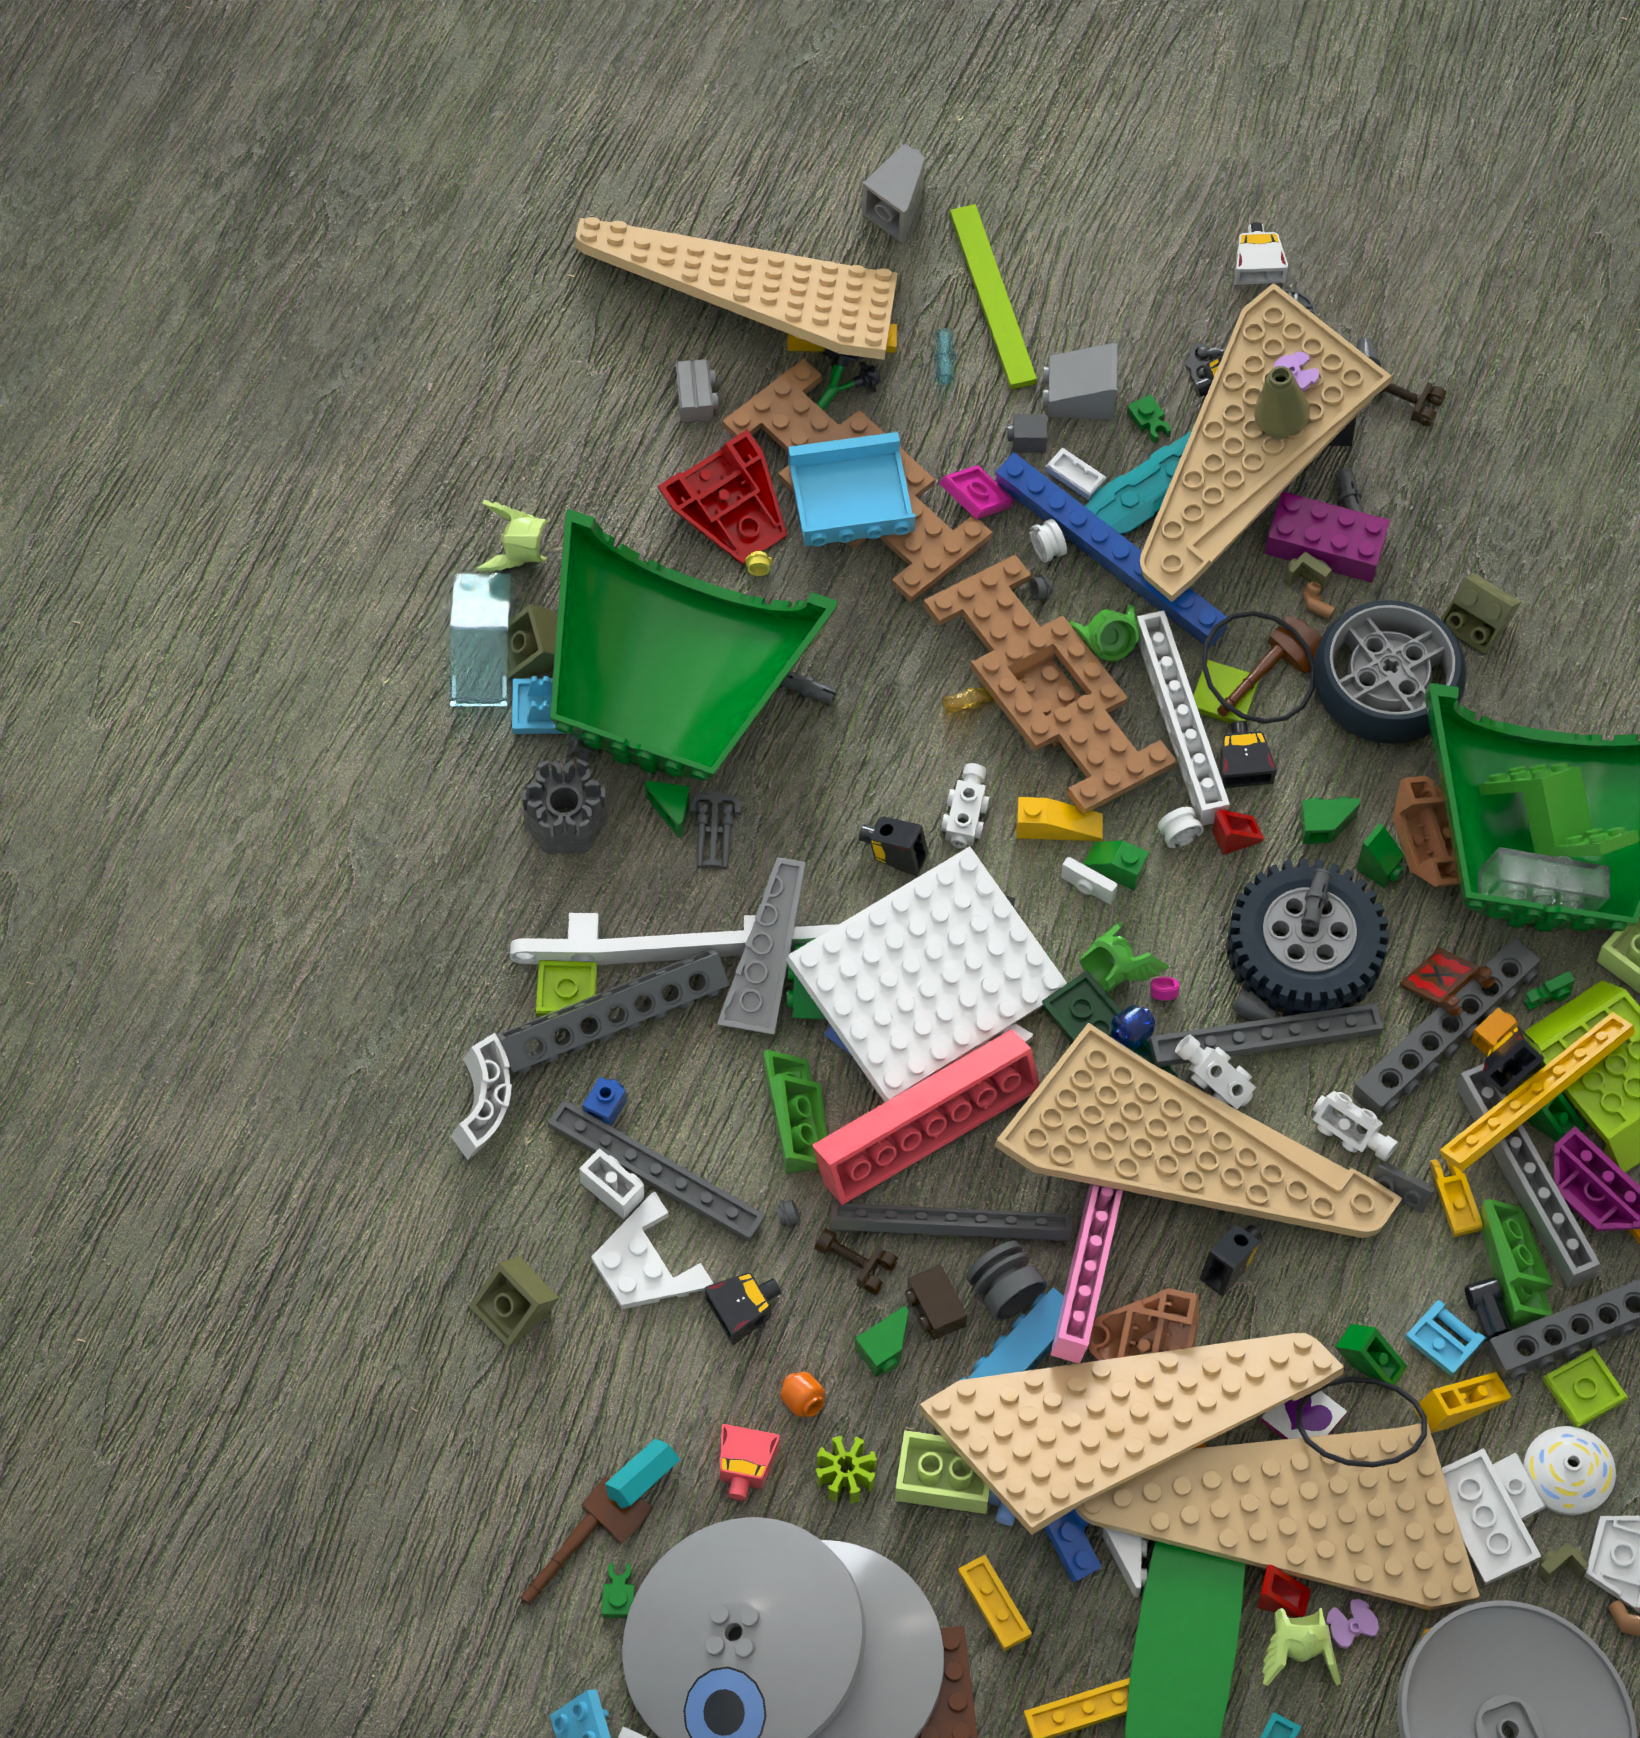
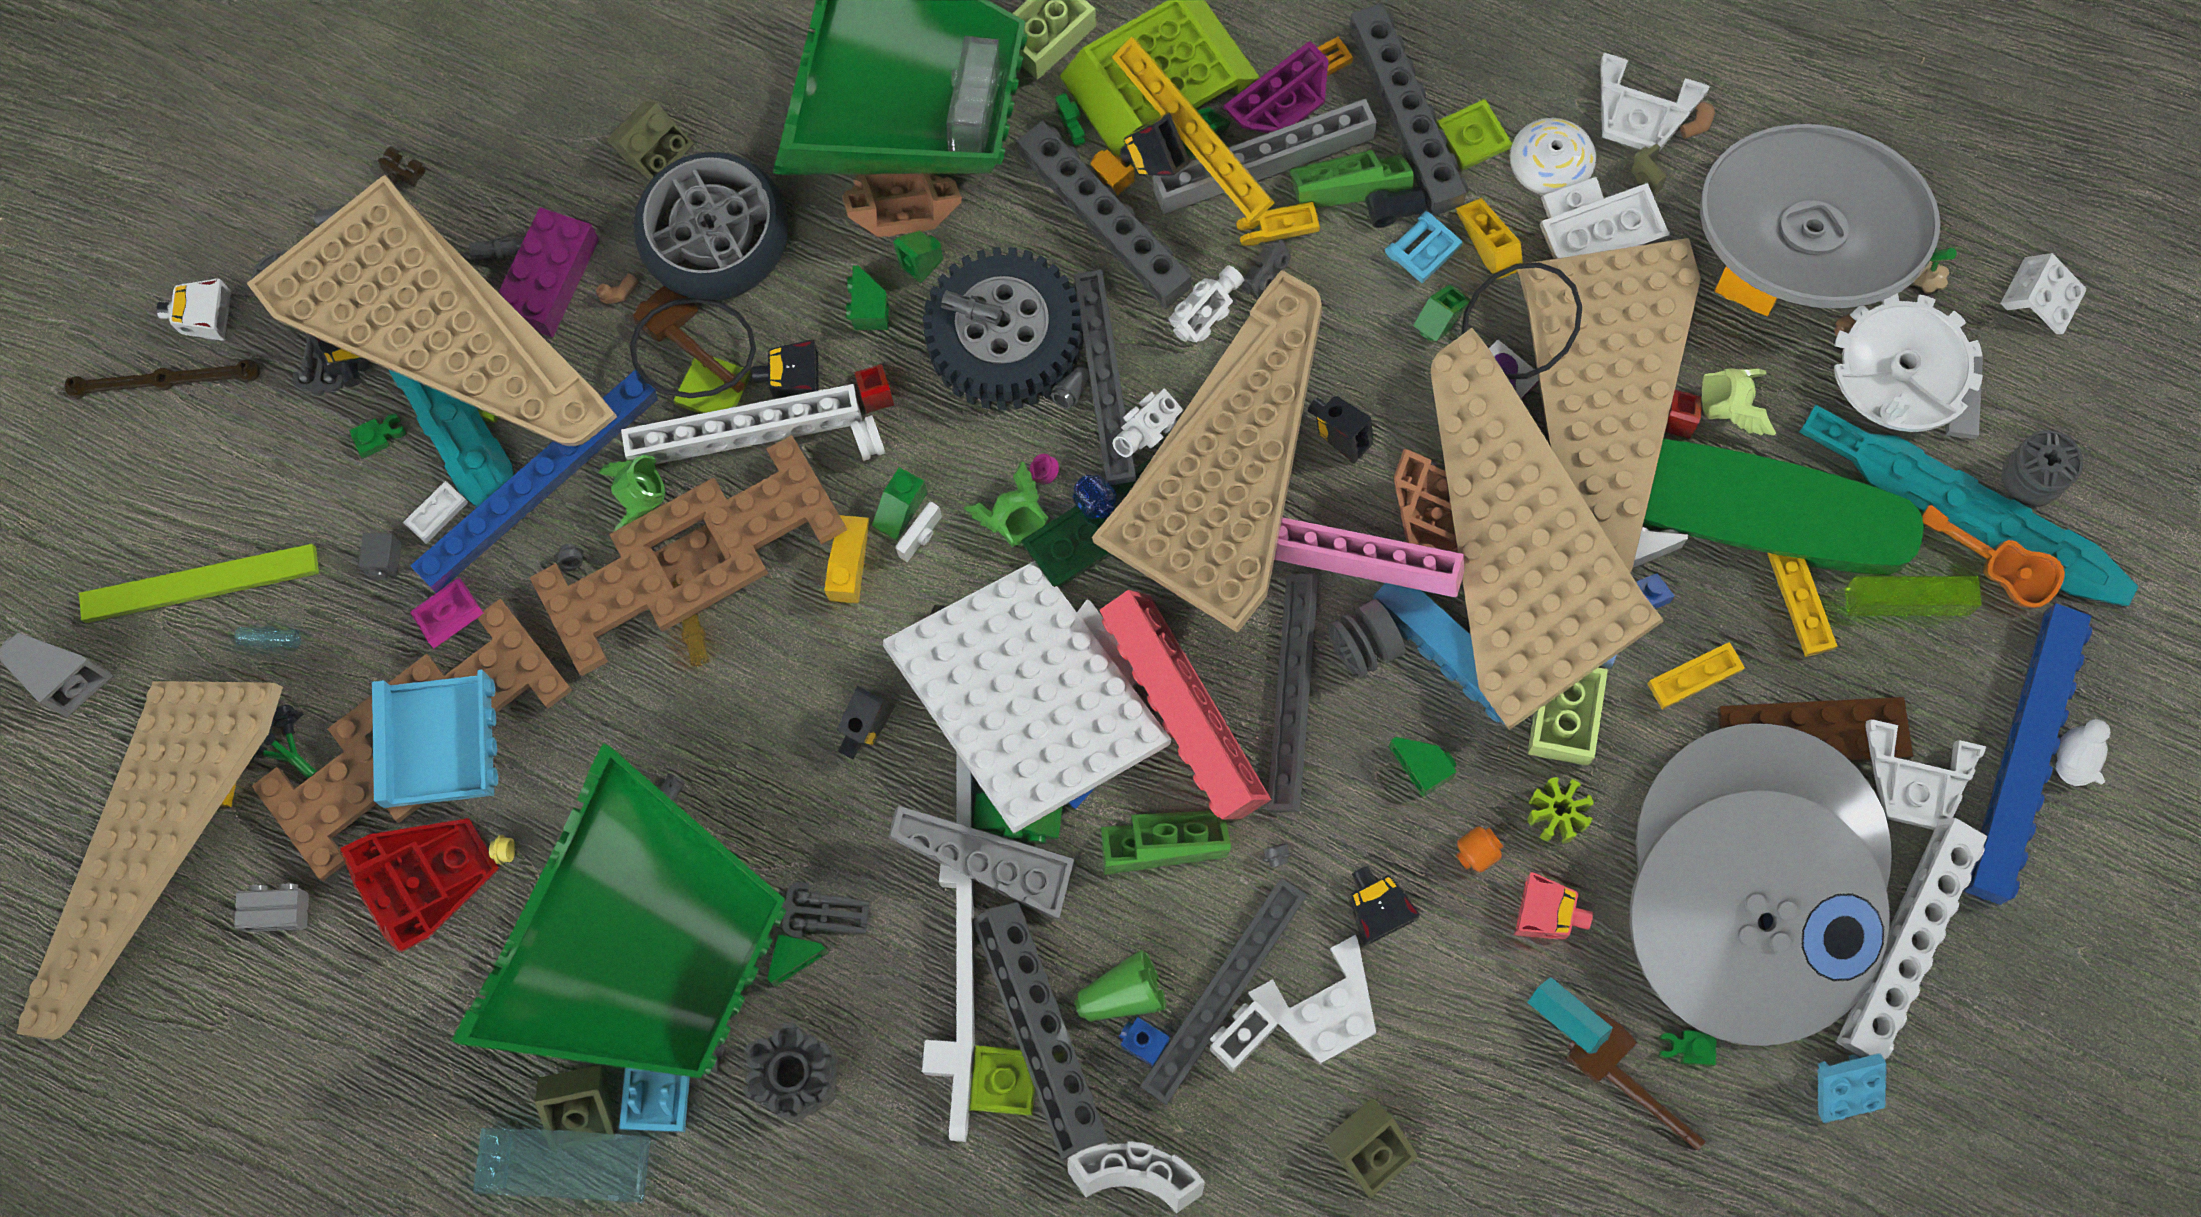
camera: 80 degrees left, 10 degrees up
(519, 539) = (442, 1113): yellowish green helmet -> none
(651, 1082) = (1123, 991): none -> bright green cone
(887, 1260) = (1311, 816): dark brown bar -> none
(936, 1302) = (1381, 711): dark brown brick -> none
(965, 808) = (826, 651): white brick -> none
(1048, 540) = (516, 543): white wheel -> none
(1082, 383) = (328, 493): light grey slope -> none
(1204, 305) = (78, 387): none -> dark brown piece
(1281, 405) = (408, 281): olive cone -> none
(1294, 363) = (355, 272): lavender piece -> none
(1310, 569) = (581, 291): olive bracket -> none
(1344, 1630) = (1707, 345): lavender piece -> none
(1443, 977) = (1052, 211): reddish brown flag -> none
(1558, 811) = (898, 77): bright green bracket -> none

